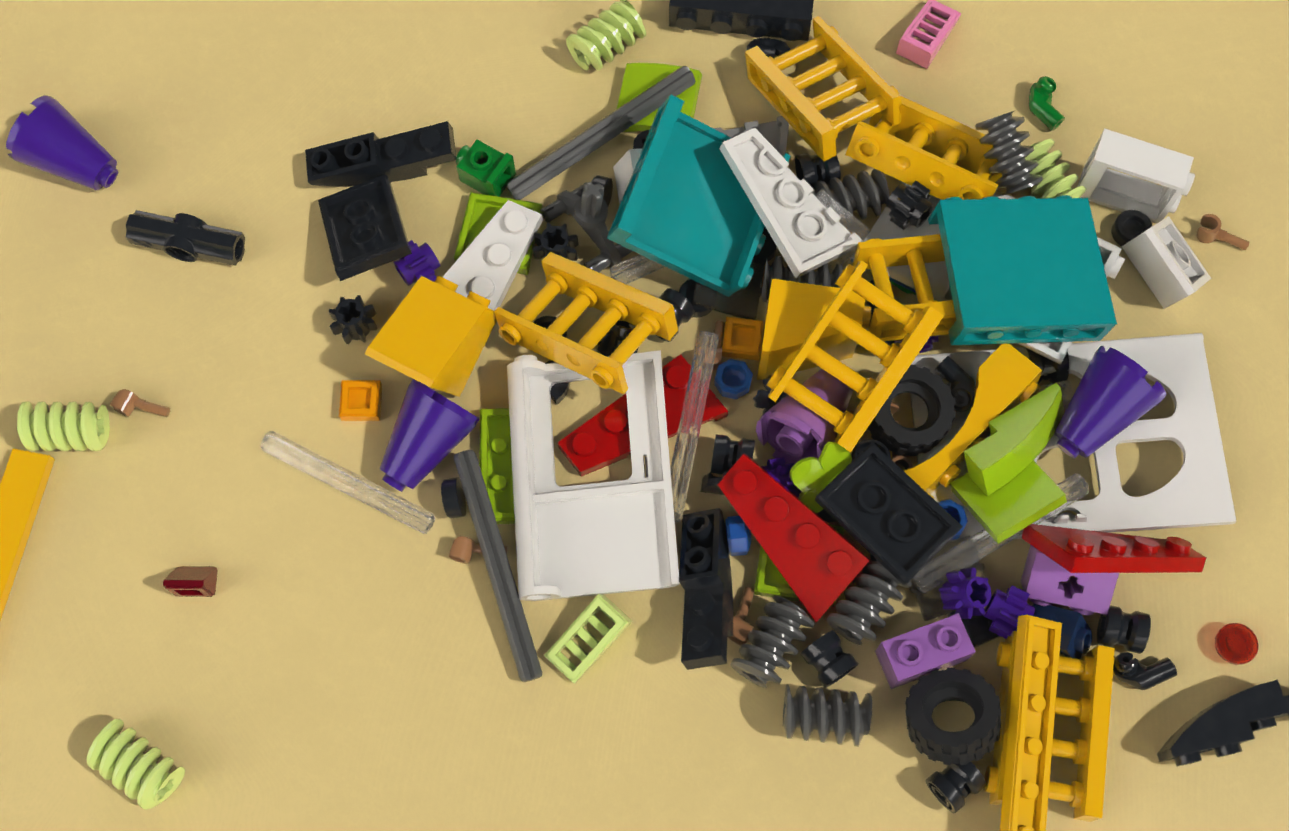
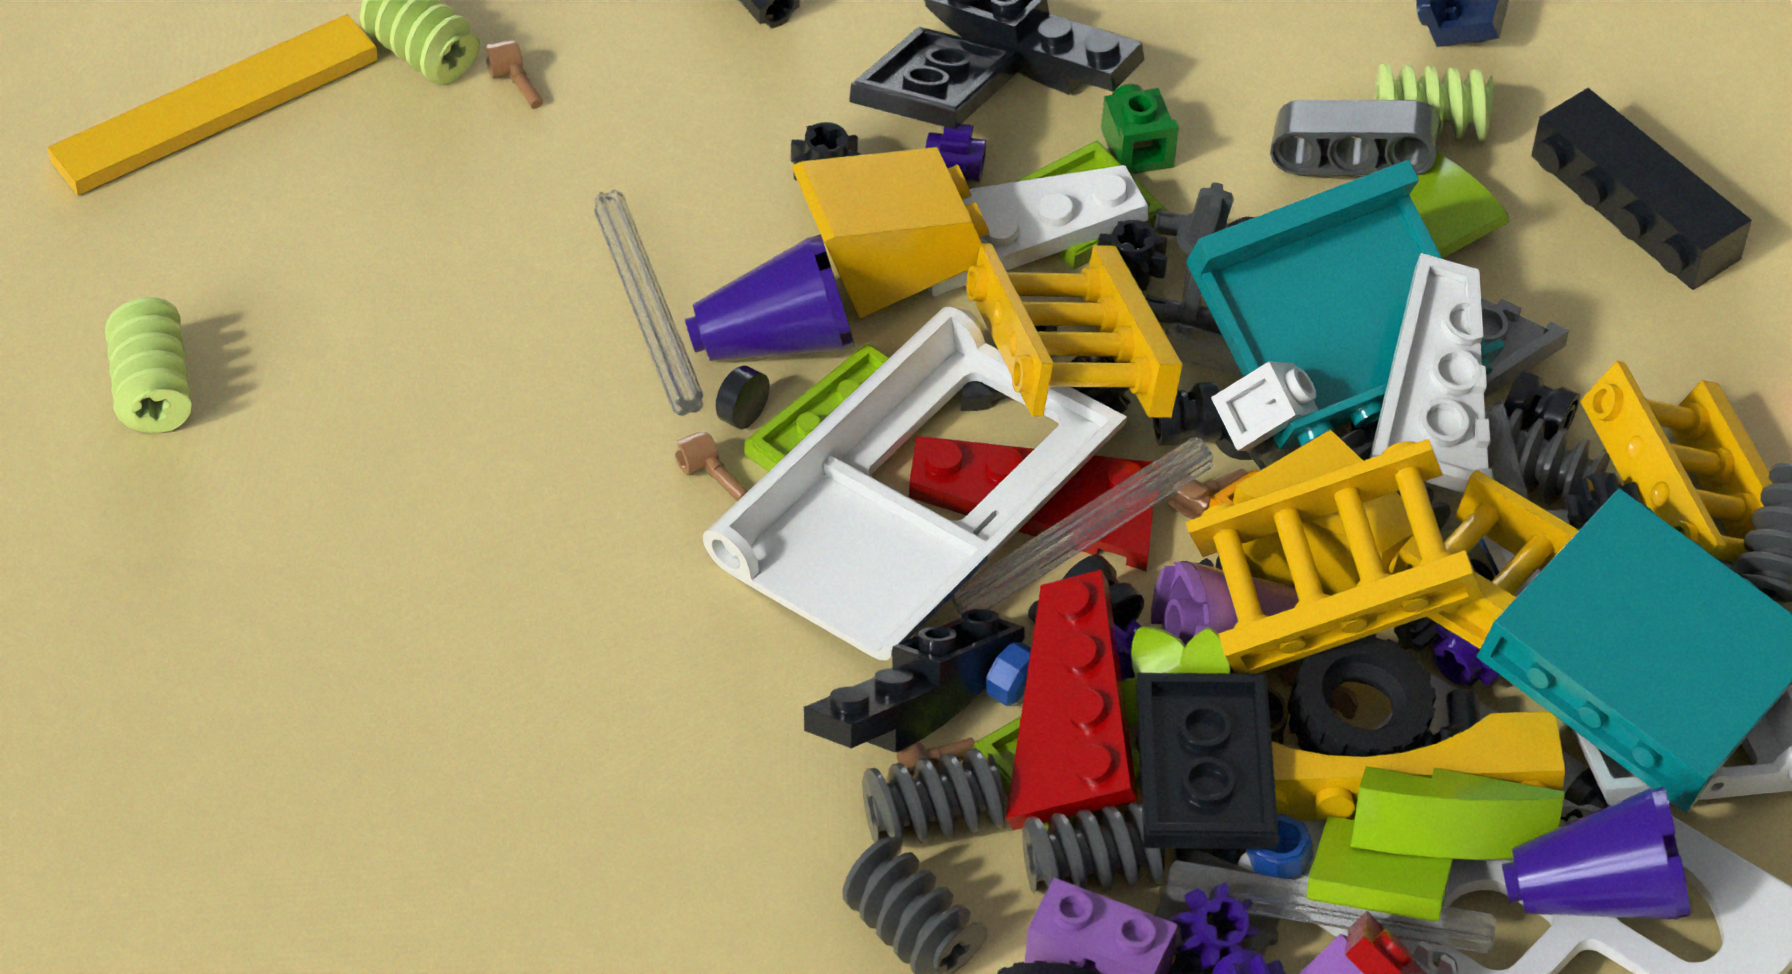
camera: 40 degrees right, 20 degrees down
(192, 581) = (384, 264): slope -> none
(360, 400) = (748, 240): light orange tile -> none
(498, 566) = (714, 492): dark grey axle -> none
(593, 88) = (1329, 129): none -> dark grey beam
(599, 603) = (758, 656): yellowish green slope -> none
(600, 133) = (1298, 183): dark grey axle -> none
(714, 283) = (1265, 403): none -> white bracket
(733, 379) = (1175, 534): blue tile -> none
(769, 46) = (1625, 253): black plant -> none
(803, 111) = (1581, 324): yellow fence -> none
(829, 658) = (981, 868): black wheel -> none

